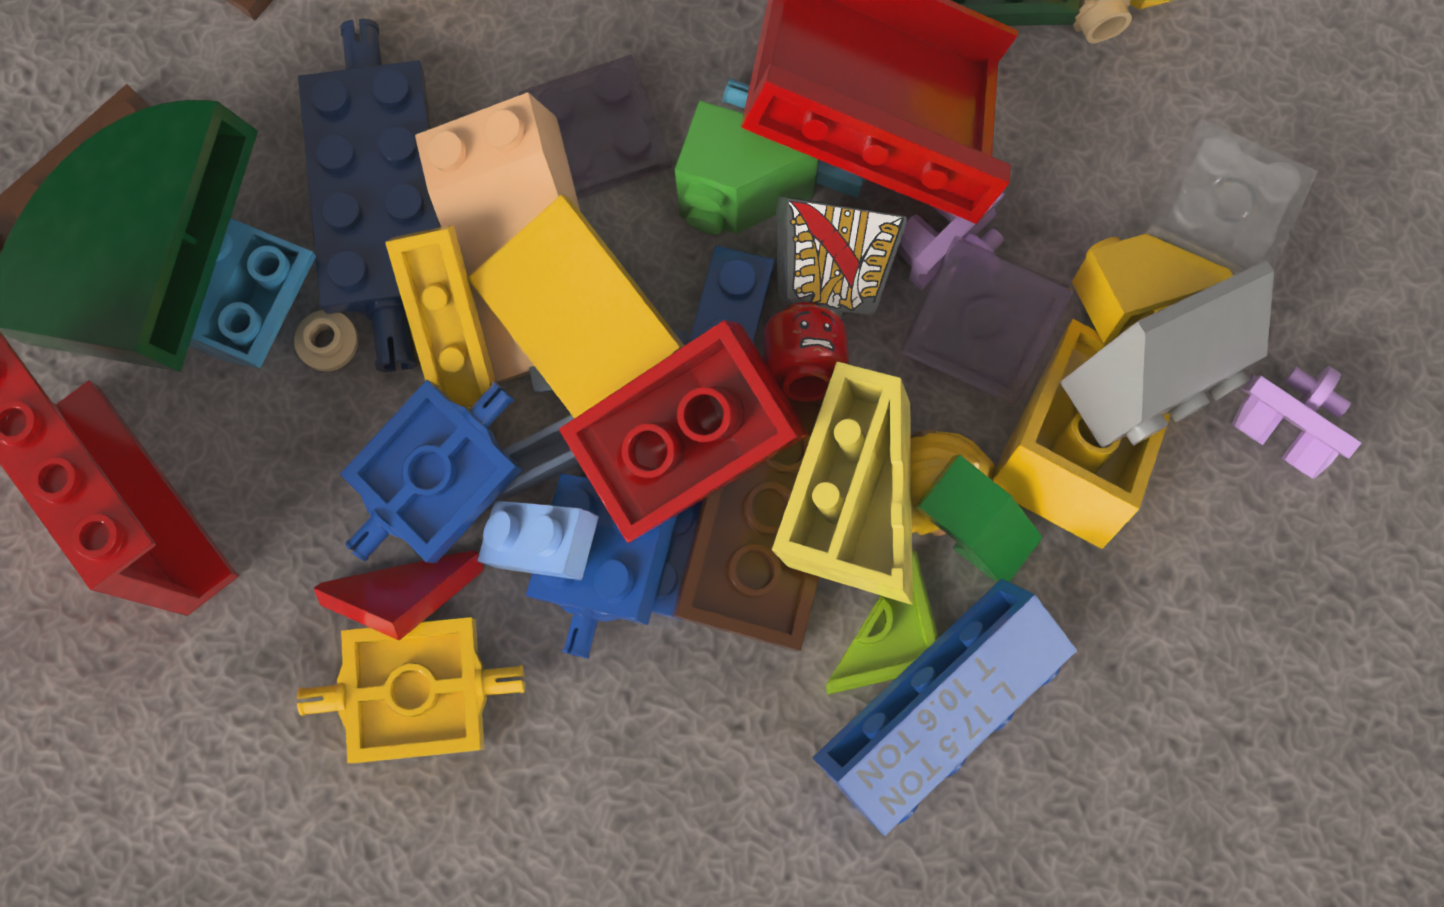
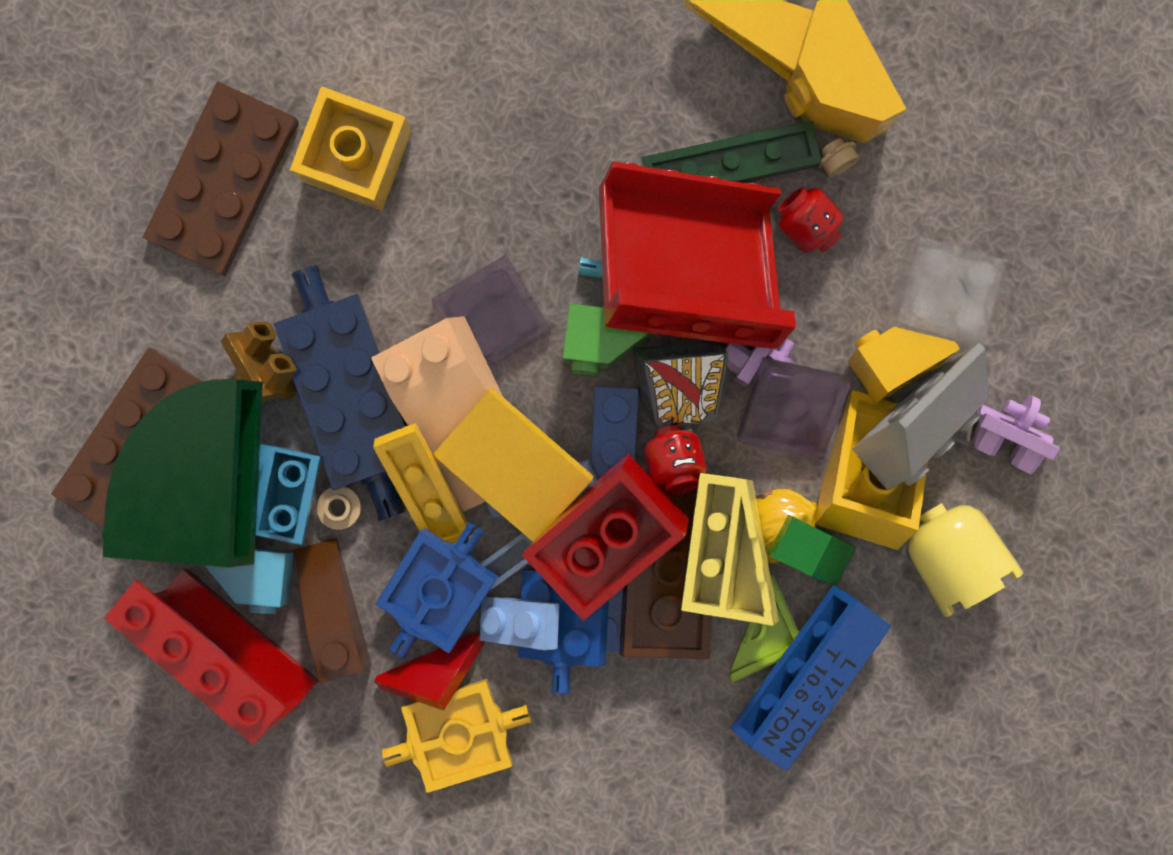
camera: 15 degrees left, 10 degrees up
(186, 409) = (262, 584): none -> medium azure slope
(276, 481) = (330, 612): none -> reddish brown slope
(281, 130) = (258, 361): none -> pearl gold hips
(1052, 83) = (810, 219): none -> red head
(1193, 569) = (960, 557): none -> light yellow cylinder

